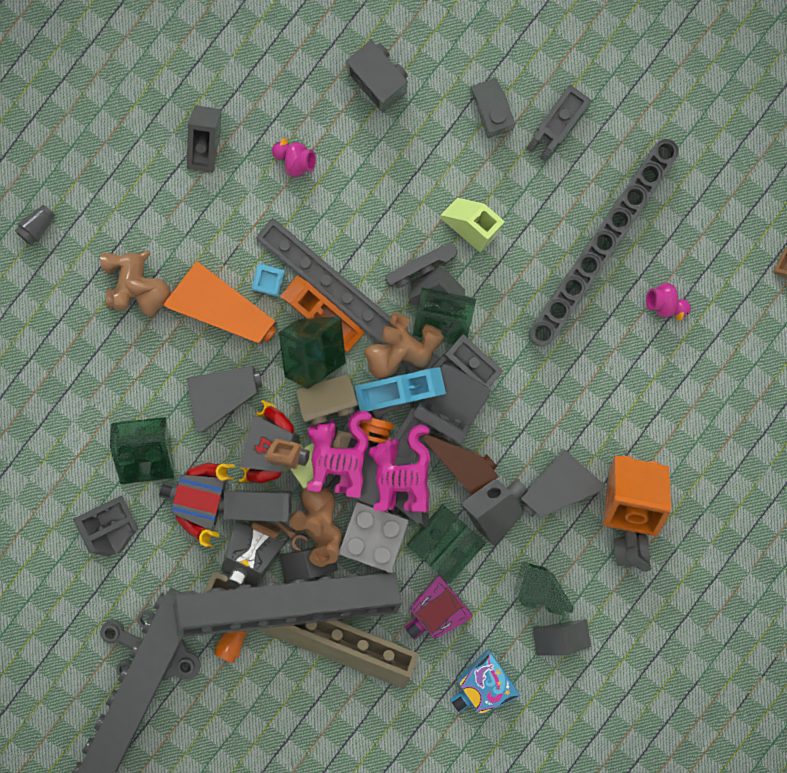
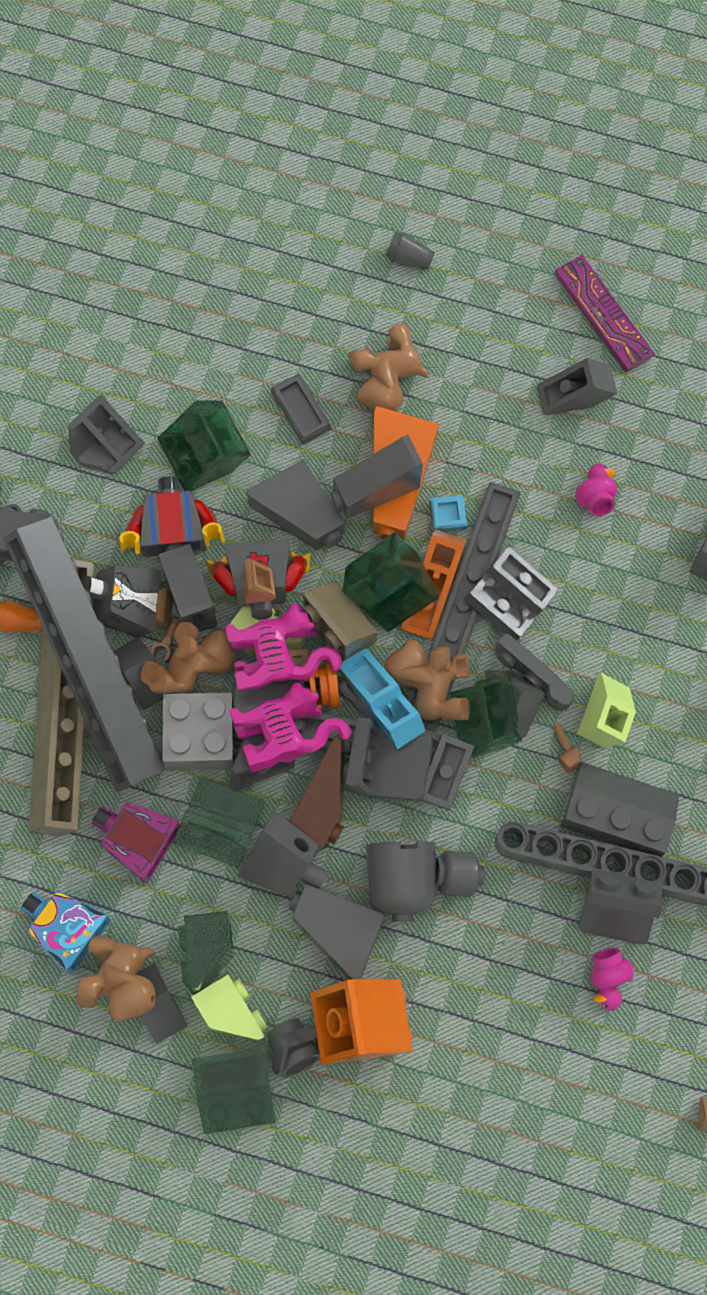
camera: 70 degrees right, 15 degrees down
(137, 362) = (300, 408): none -> dark grey tile
(145, 90) = (604, 313): none -> magenta tile
(230, 329) = (378, 478): none -> dark grey slope
(352, 258) = (511, 593): none -> dark grey slope
(495, 264) = (571, 757): none -> medium nougat hand
(541, 426) = (401, 878): none -> dark grey cylinder
(548, 242) = (621, 810): none -> dark grey slope
(551, 383) = (458, 873): none -> dark grey head
(557, 657) = (118, 979): none -> medium nougat animal
(590, 588) = (227, 1013): none -> yellowish green slope
(622, 274) = (620, 907): none -> dark grey bracket
(646, 603) = (233, 1090): none -> clear green slope

